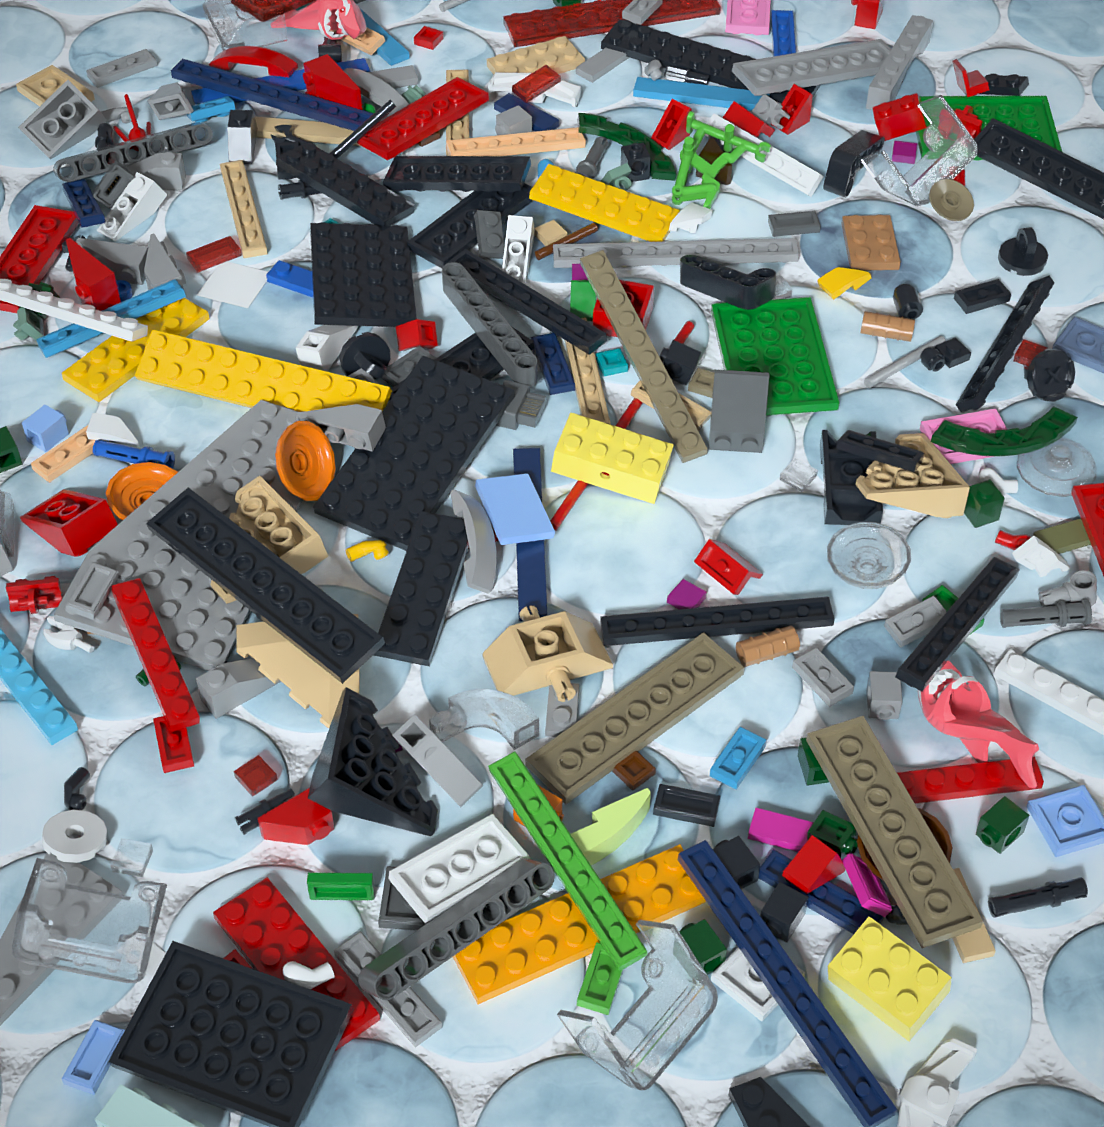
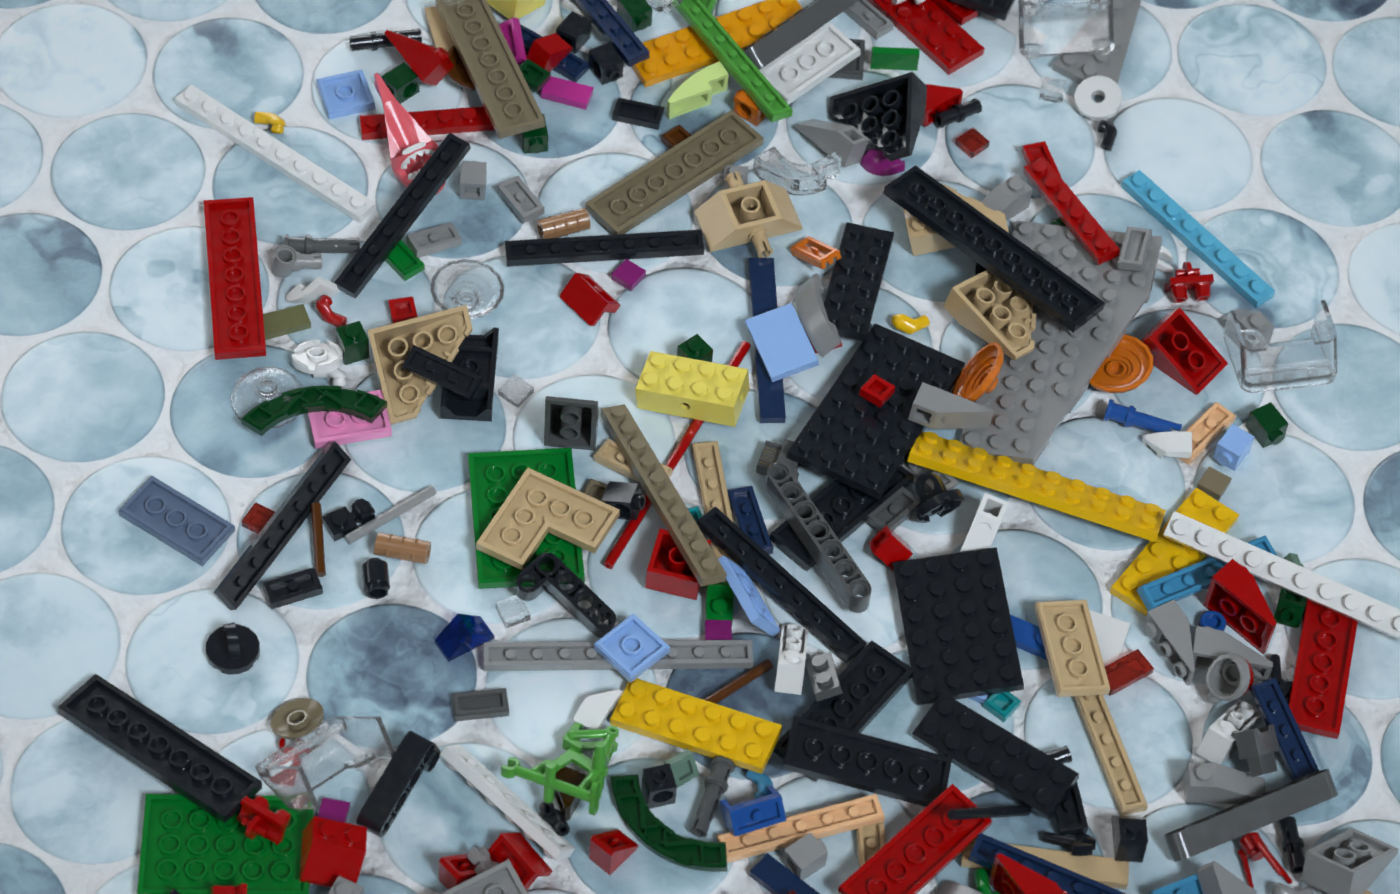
camera: 175 degrees right, 5 degrees up
(76, 404) = (1214, 483): none -> dark tan tile
(119, 226) = (1229, 678): none -> light grey piece
(258, 257) = (1072, 648): none -> tan tile
(416, 442) = (877, 390): none -> red plate
(462, 623) = (813, 255): none -> orange tile
(549, 232) = (755, 693): tan tile -> none
(556, 144) = (754, 813): none -> blue panel
(557, 277) = (749, 597): none -> light blue tile
(610, 498) = (695, 349): none -> dark green brick
(663, 247) = (631, 647): none -> light blue tile
(738, 758) = (596, 139): dark azure plate -> none
(757, 346) = (541, 507): none -> tan plate
(812, 266) = (463, 635): none -> clear blue slope
(841, 279) = (437, 613): yellow slope -> none
(870, 242) = (398, 674): medium nougat plate -> none
(935, 552) = (402, 309): none -> red tile
(969, 336) = (318, 540): none -> reddish brown bar
(989, 844) = (427, 61): none -> red slope
(1030, 484) = (317, 357): none -> white tile
(1050, 375) = (256, 472): black tile -> none

